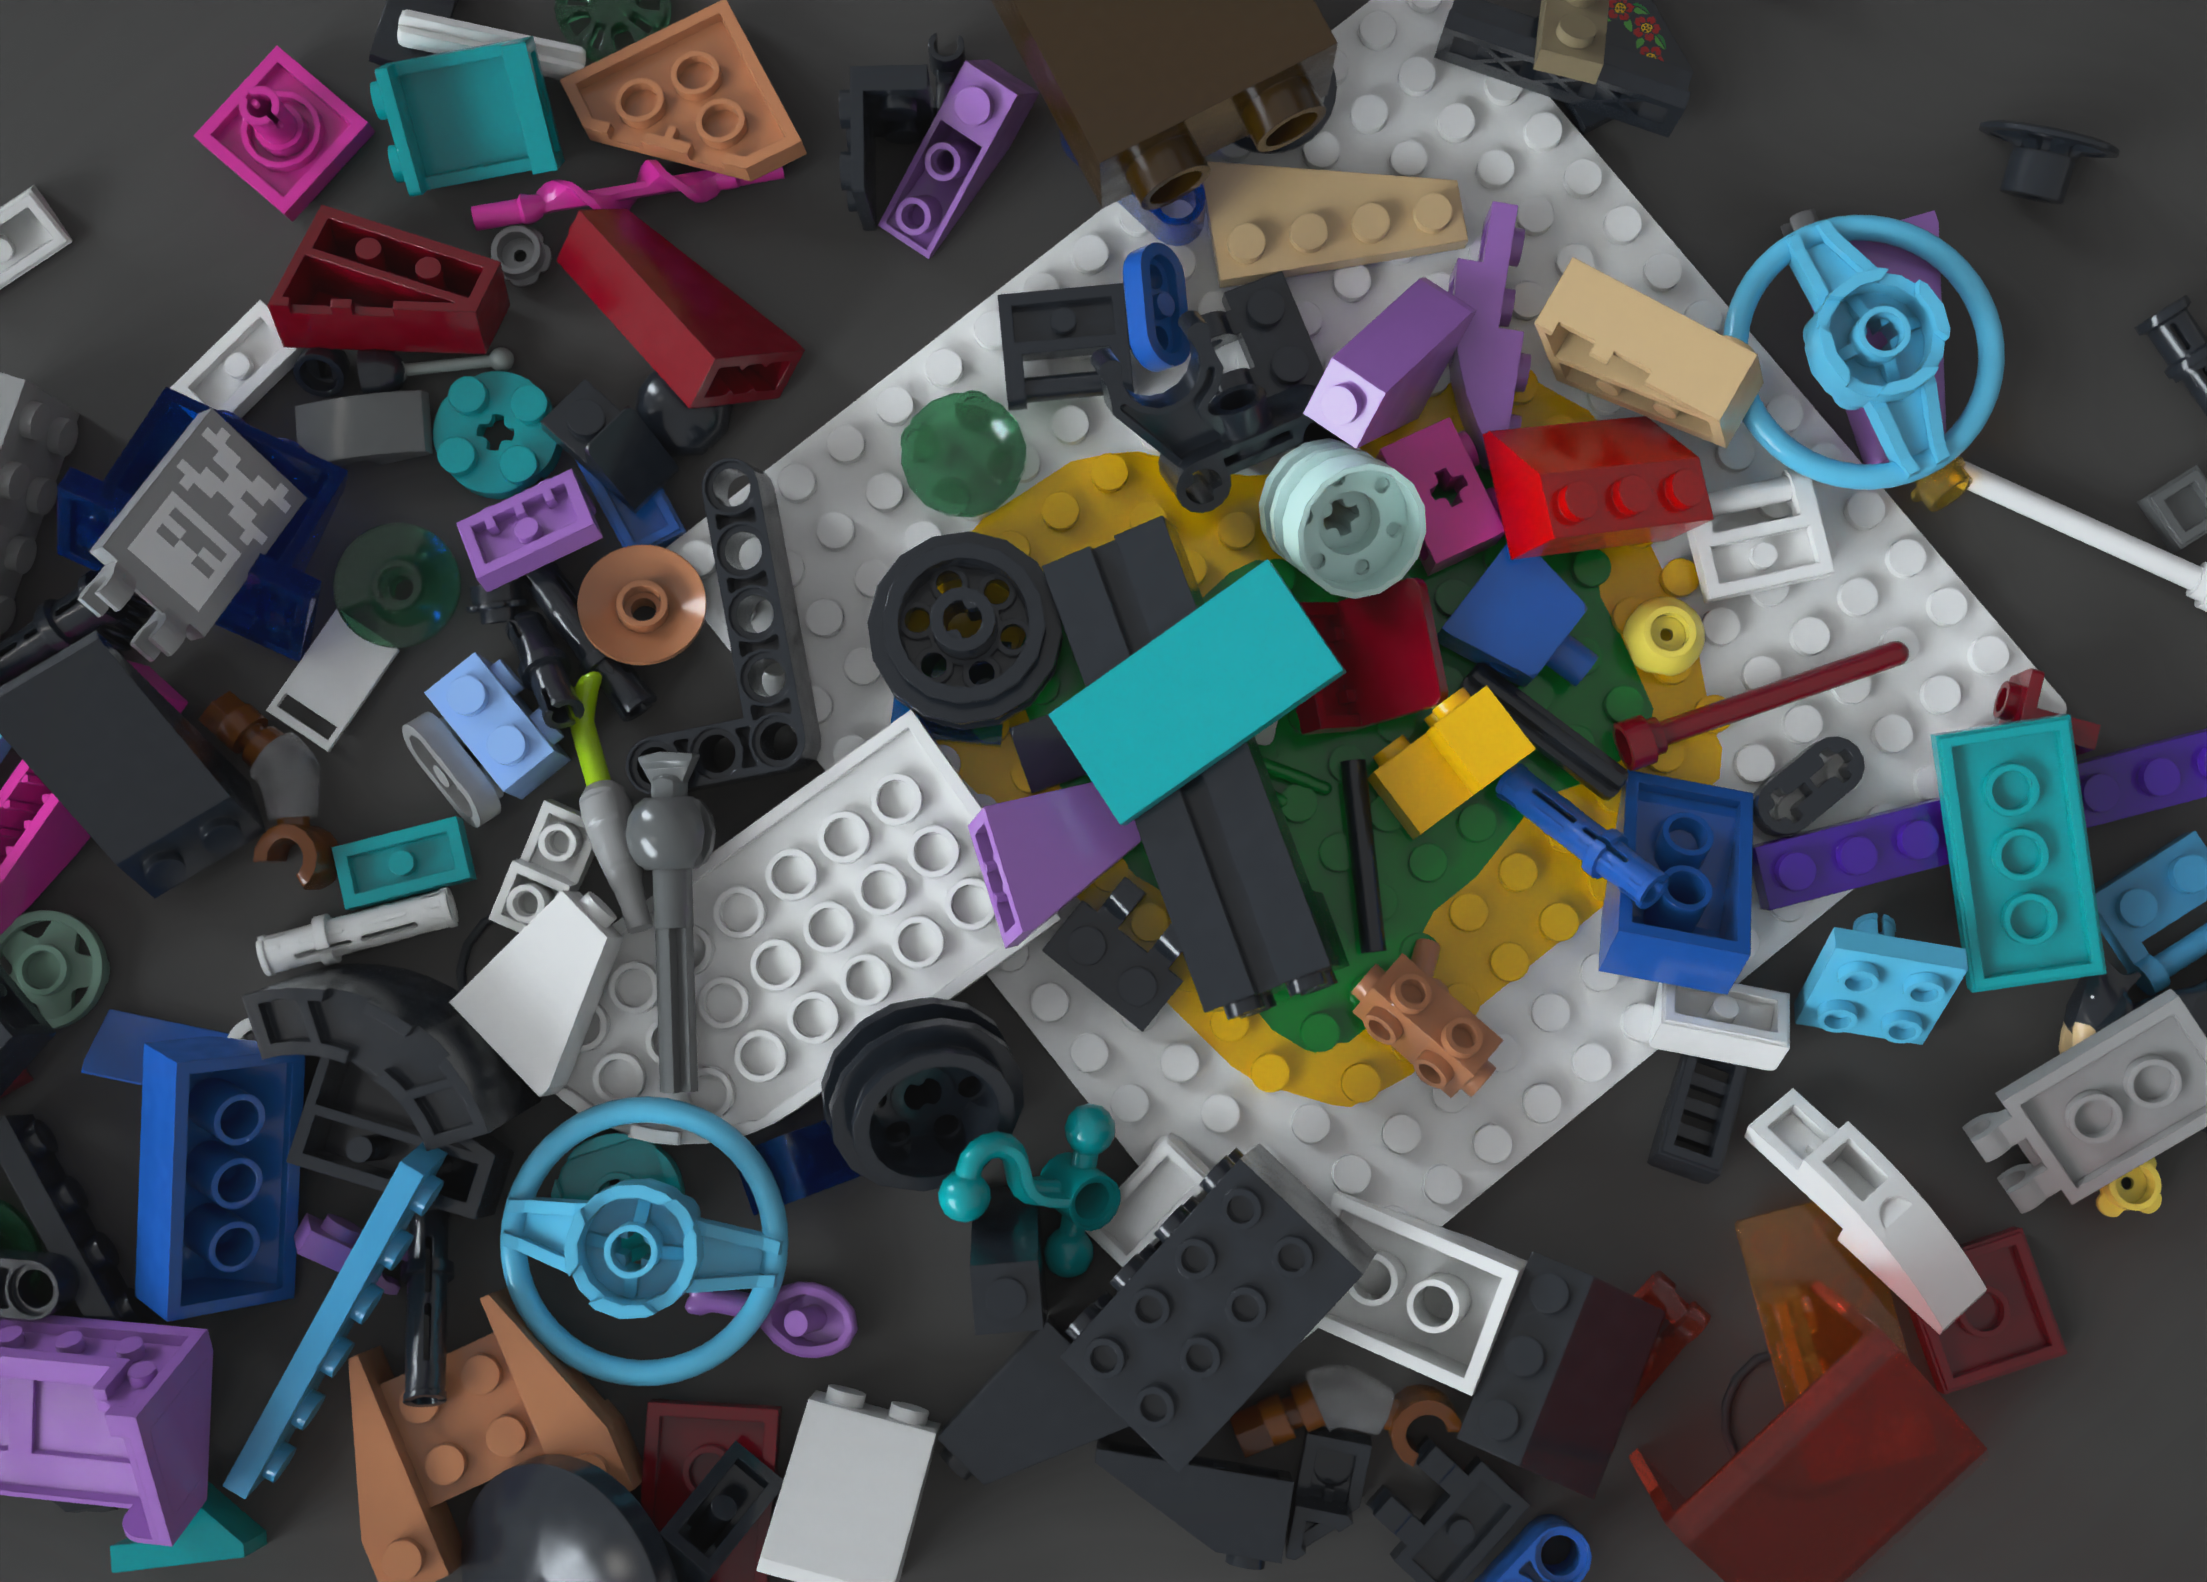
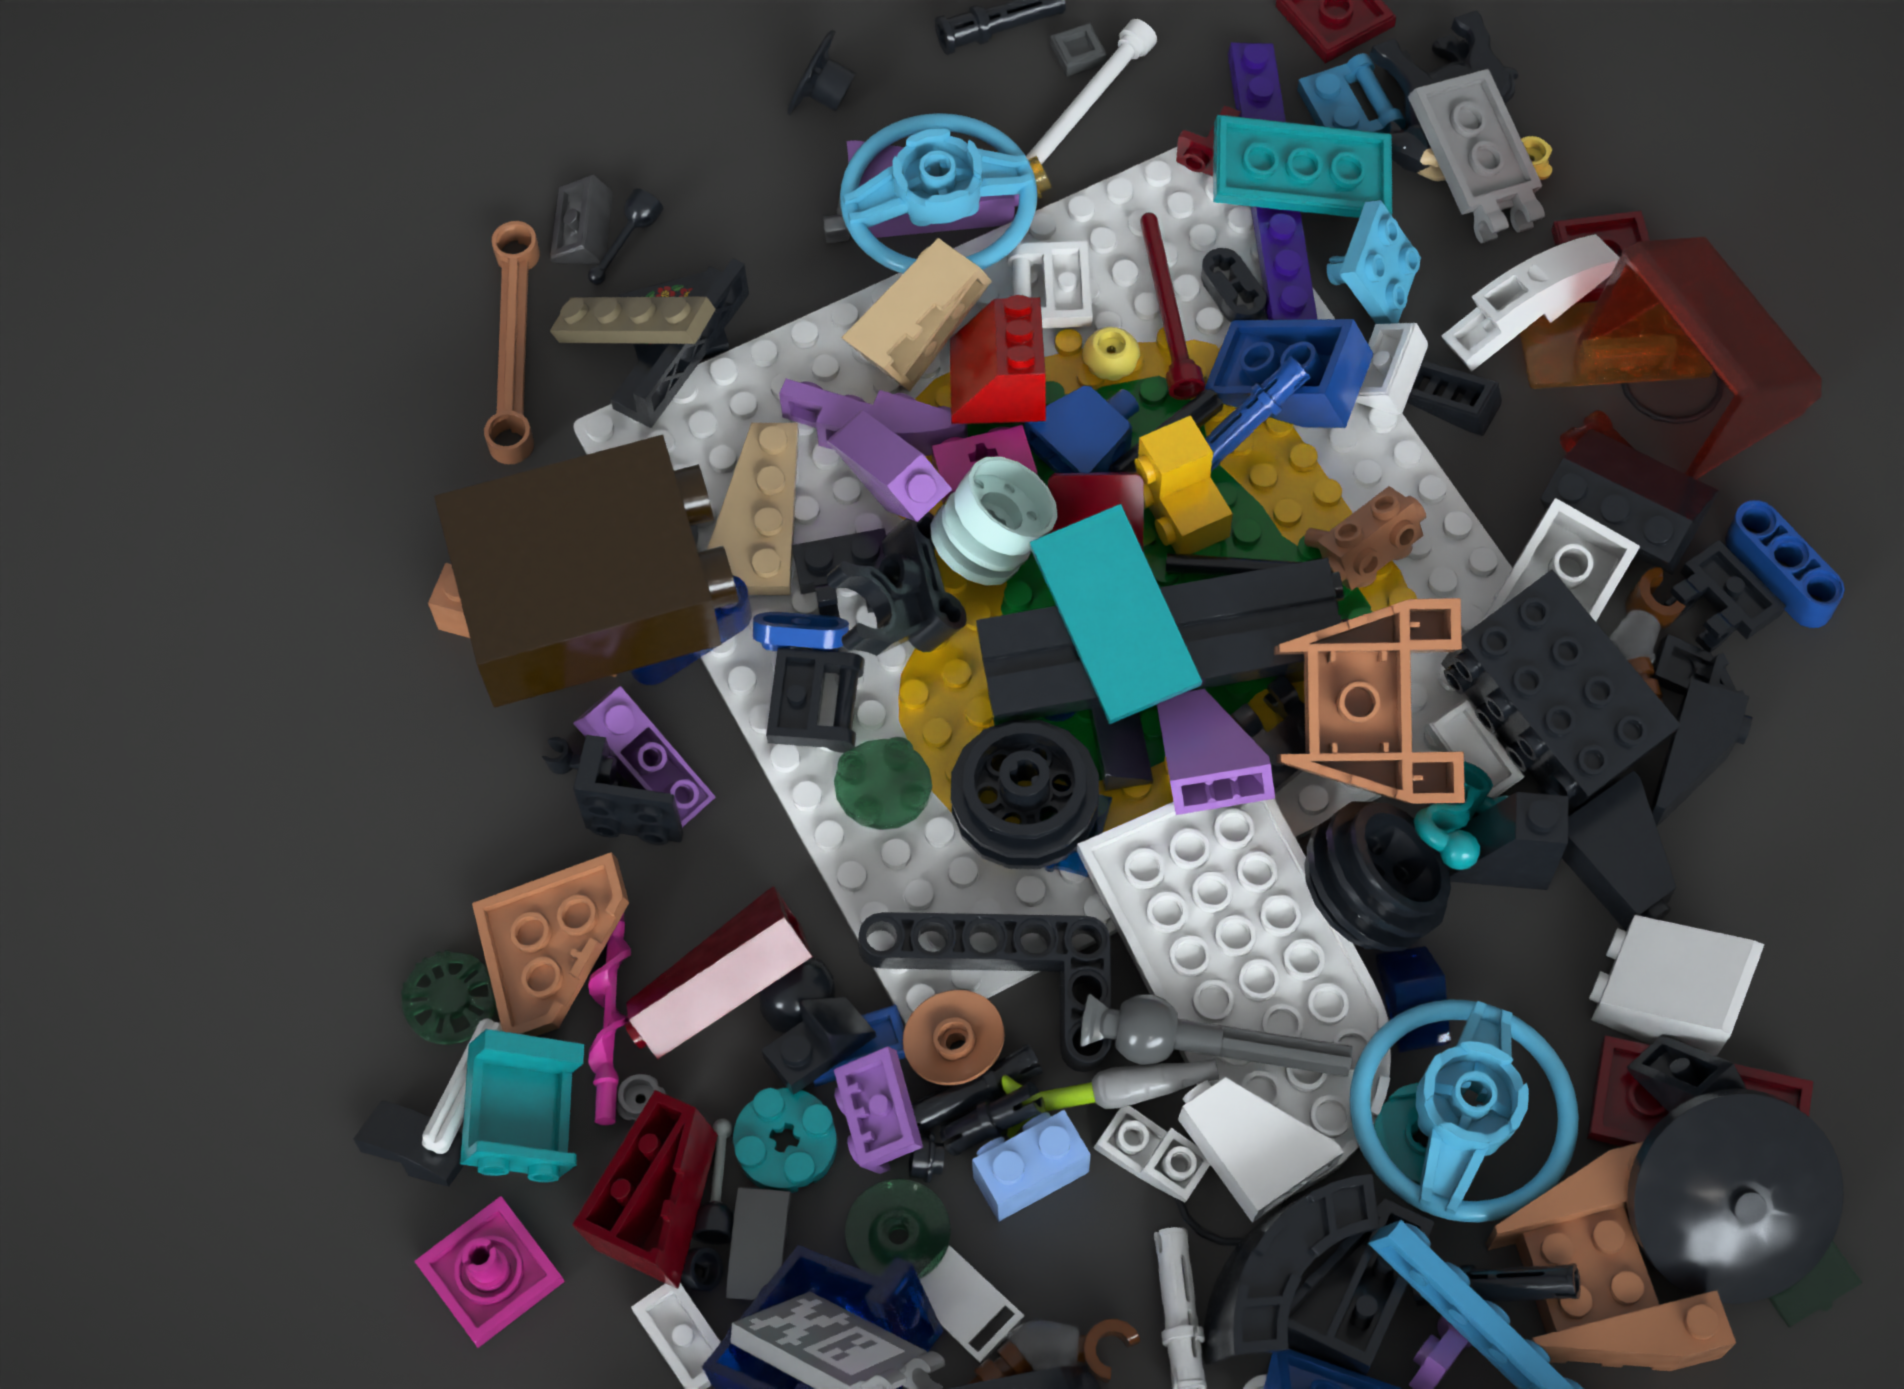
camera: 80 degrees left, 20 degrees down
(404, 863) = (1129, 1263): teal plate -> none
(452, 770) = (1058, 1210): light grey plate -> none
(804, 1320) = (1540, 1002): medium lavender piece -> none
(1128, 1038) = (1362, 702): none -> nougat wedge

